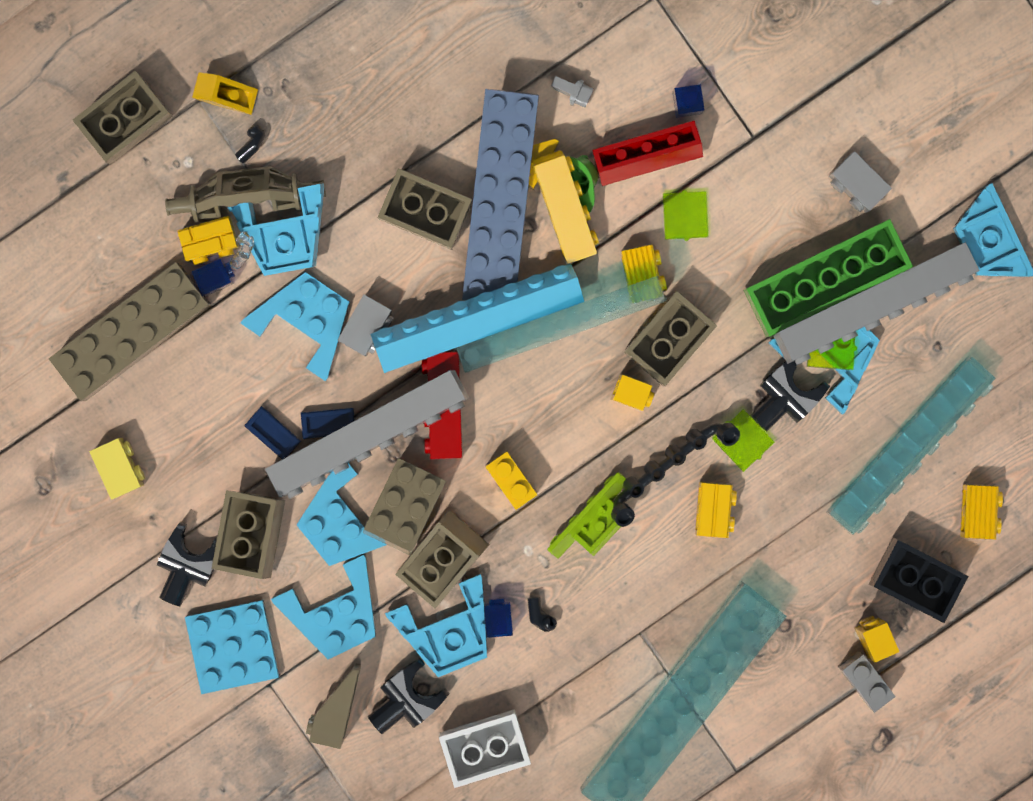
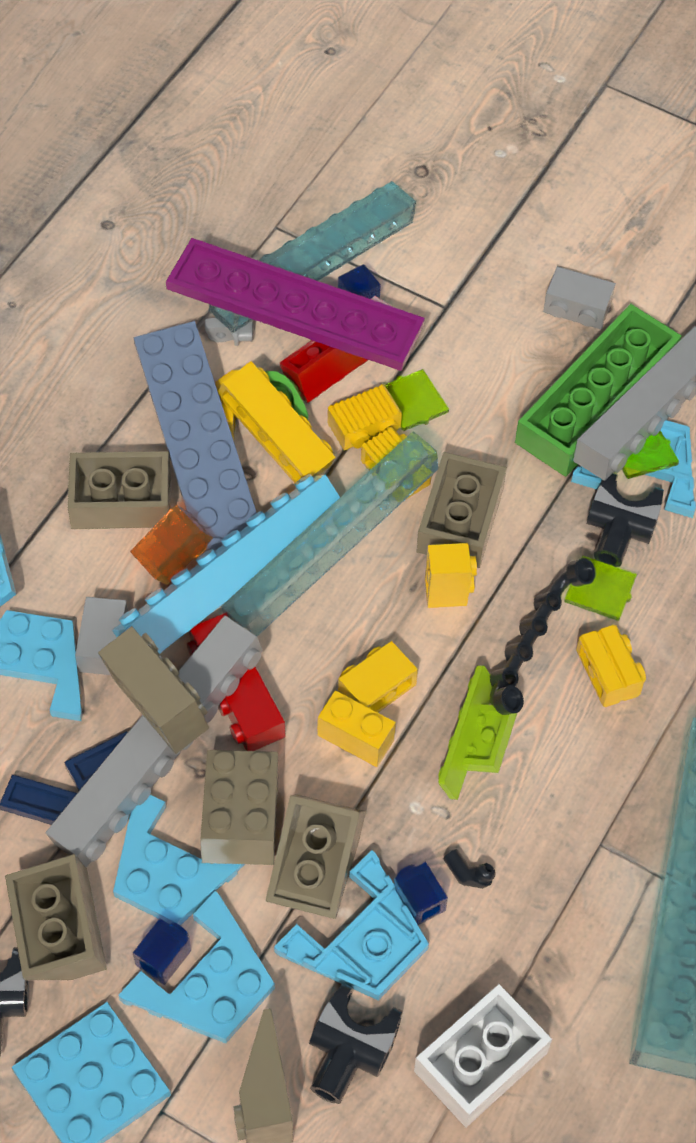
camera: 25 degrees left, 30 degrees down
(312, 582) = (162, 950): none -> clear blue brick
(373, 415) = (155, 688): none -> dark tan brick
(443, 276) = (171, 544): none -> clear orange brick
(543, 448) = (379, 678): none -> yellow brick
(622, 113) = (296, 304): none -> magenta plate
(638, 221) = (363, 417): none -> yellow brick
(666, 52) = (337, 240): none -> clear light blue brick

